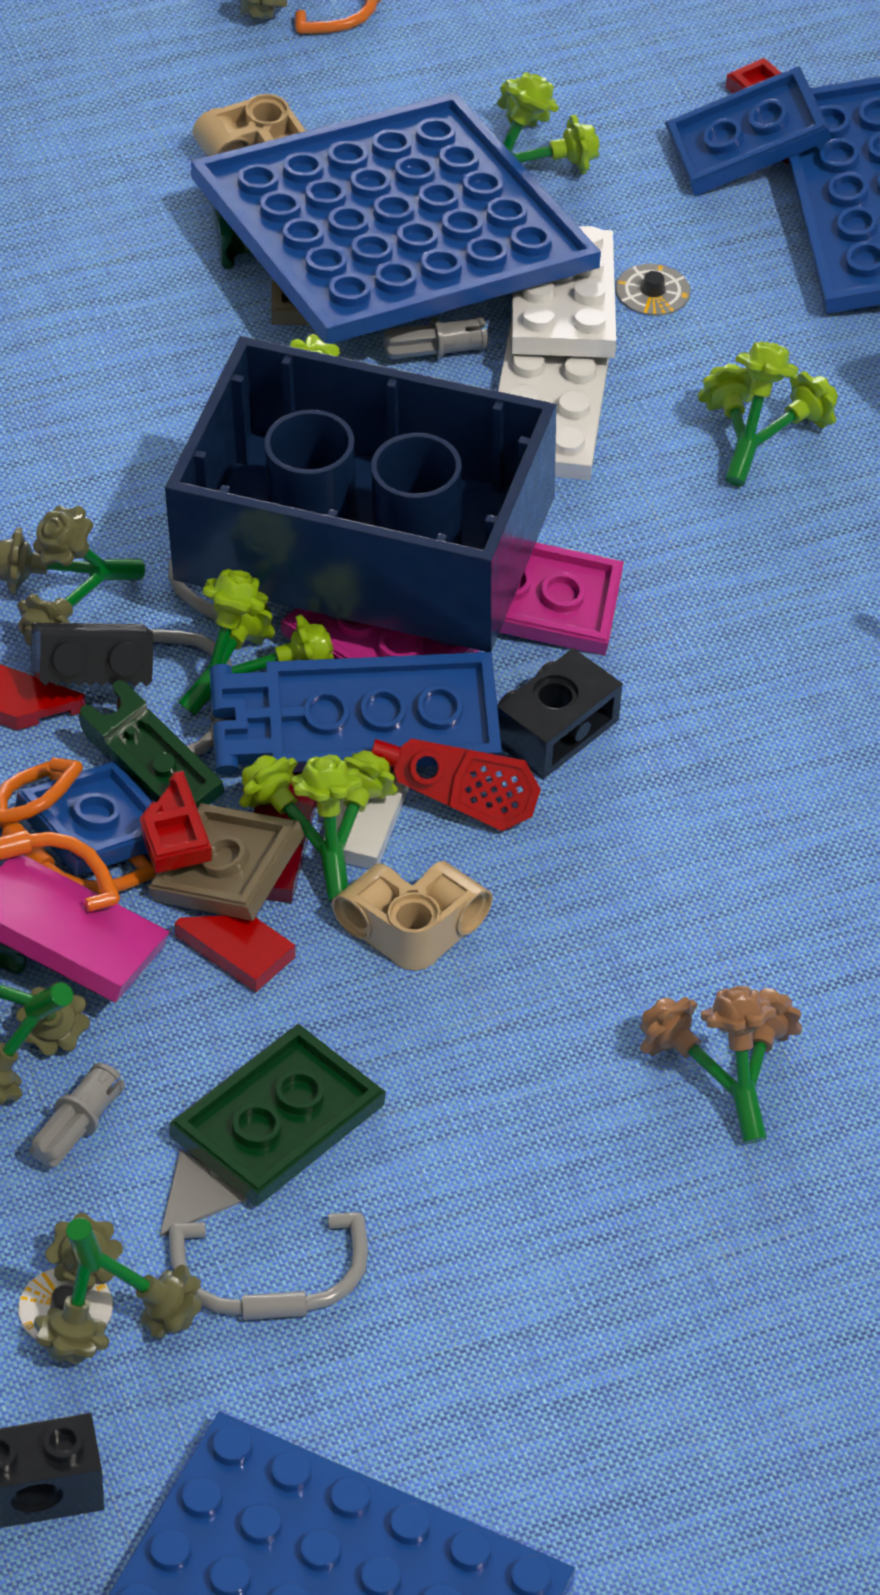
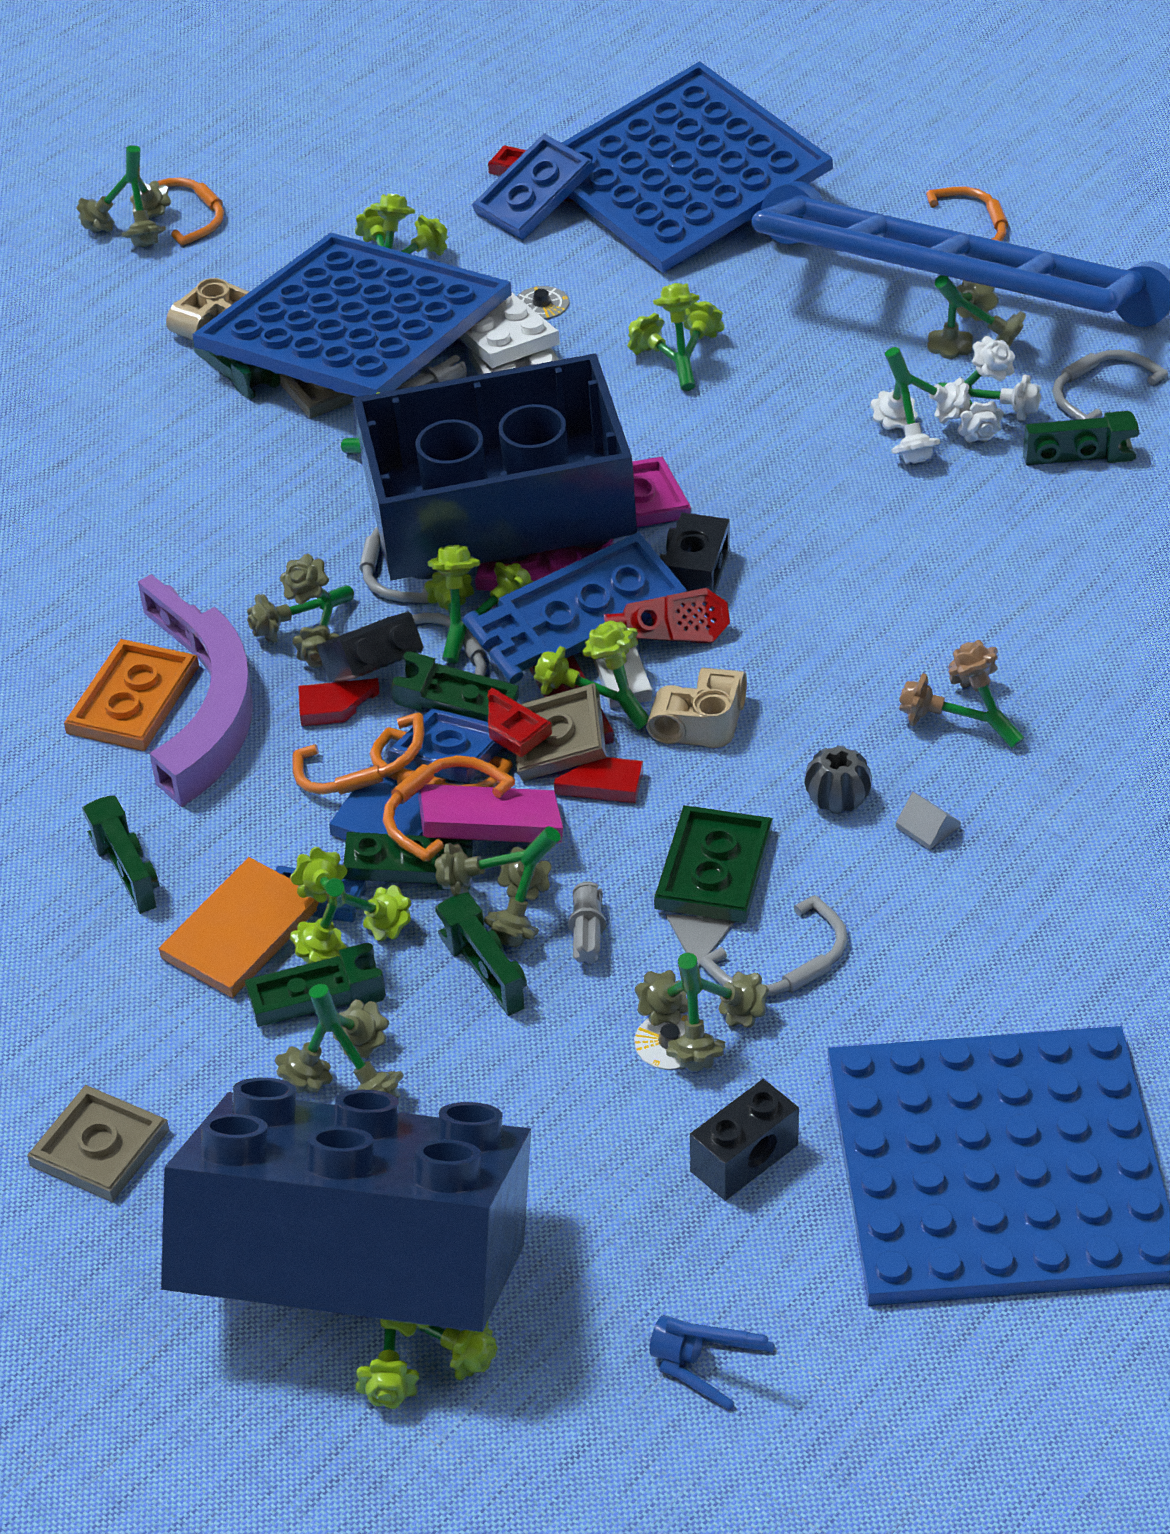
camera: 25 degrees left, 5 degrees down
(492, 1081) = (838, 779): none -> dark grey piece
(564, 1186) = (926, 821): none -> light grey slope

